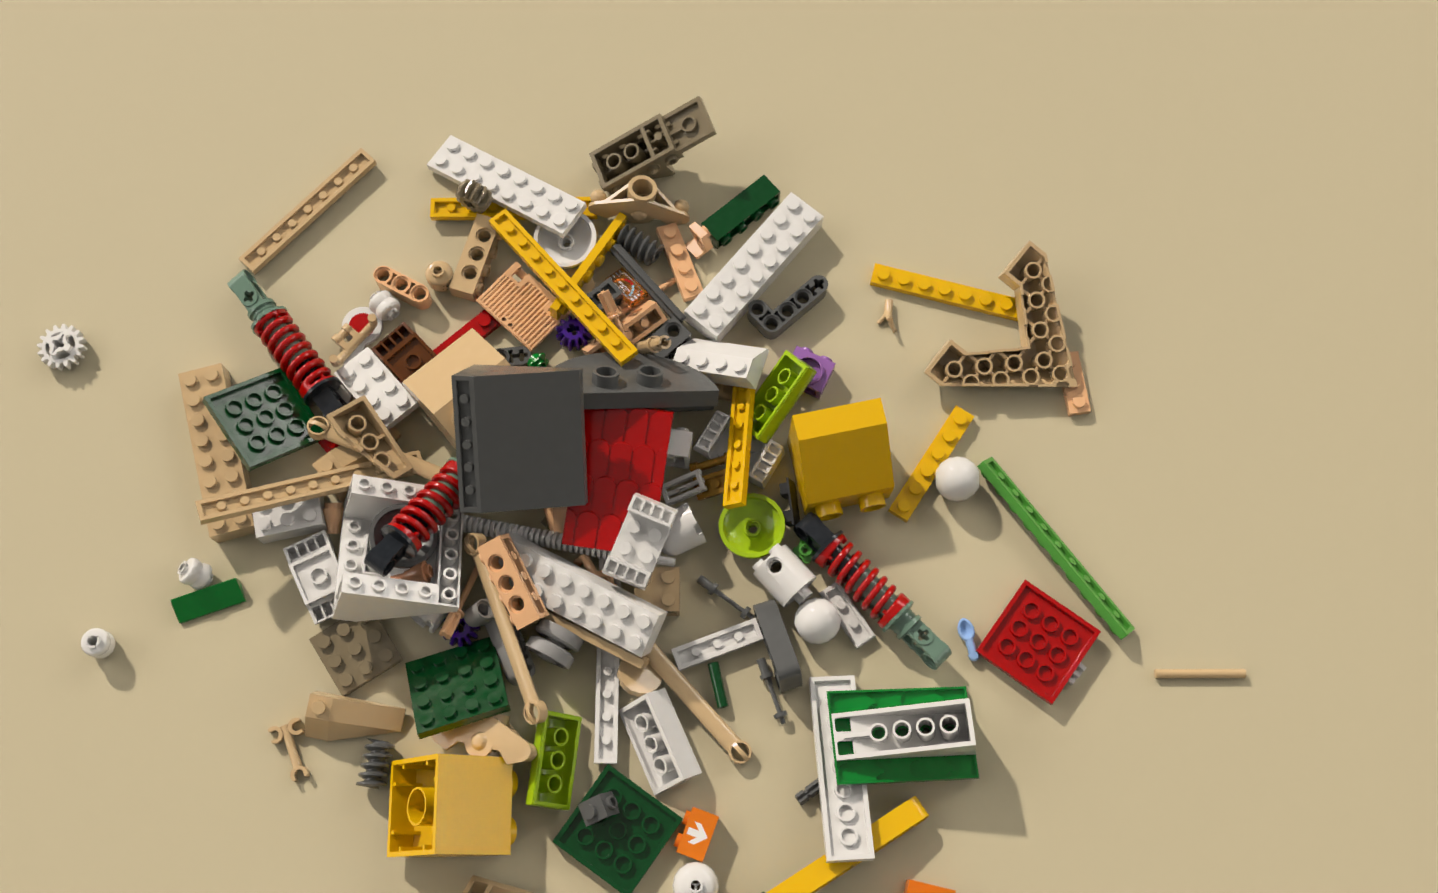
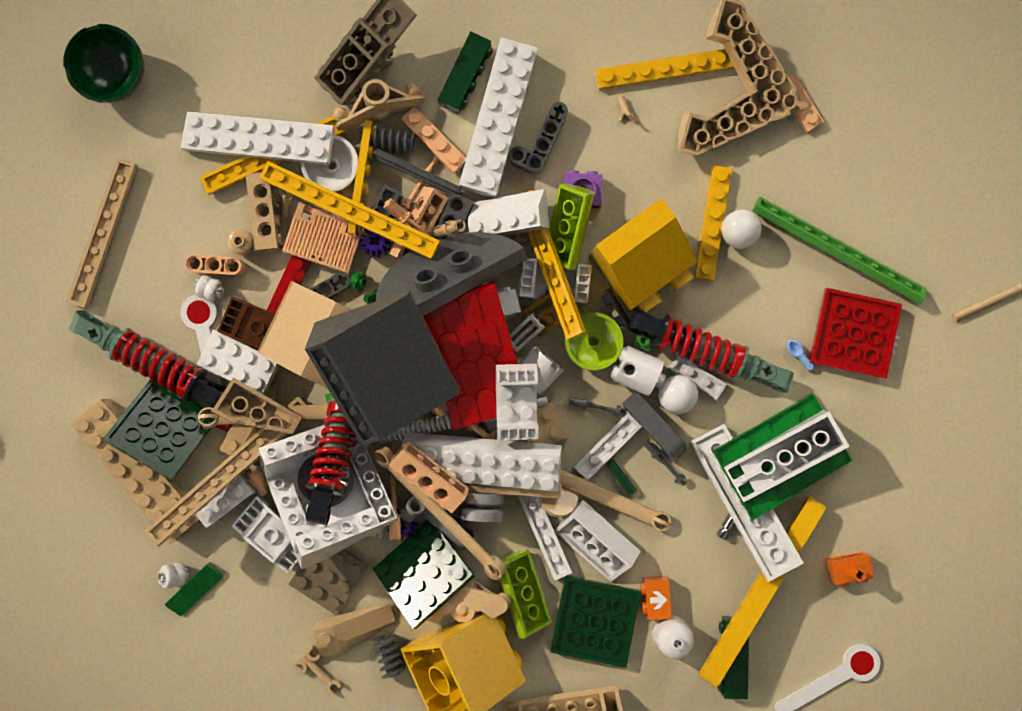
camera: 25 degrees left, 15 degrees up
(98, 643) = (126, 662): white piece -> none
(357, 339) = (198, 336): tan piece -> none
(395, 57) = (104, 63): none -> dark green piece
(421, 573) = (351, 503): nougat cone -> none
(474, 196) = (235, 161): dark tan gear -> none
(502, 260) = (285, 204): none -> tan bar
(598, 808) = (575, 614): dark grey bracket -> none
(632, 291) = (406, 184): clear orange tile -> none
(701, 242) = (443, 115): light nougat bracket -> none

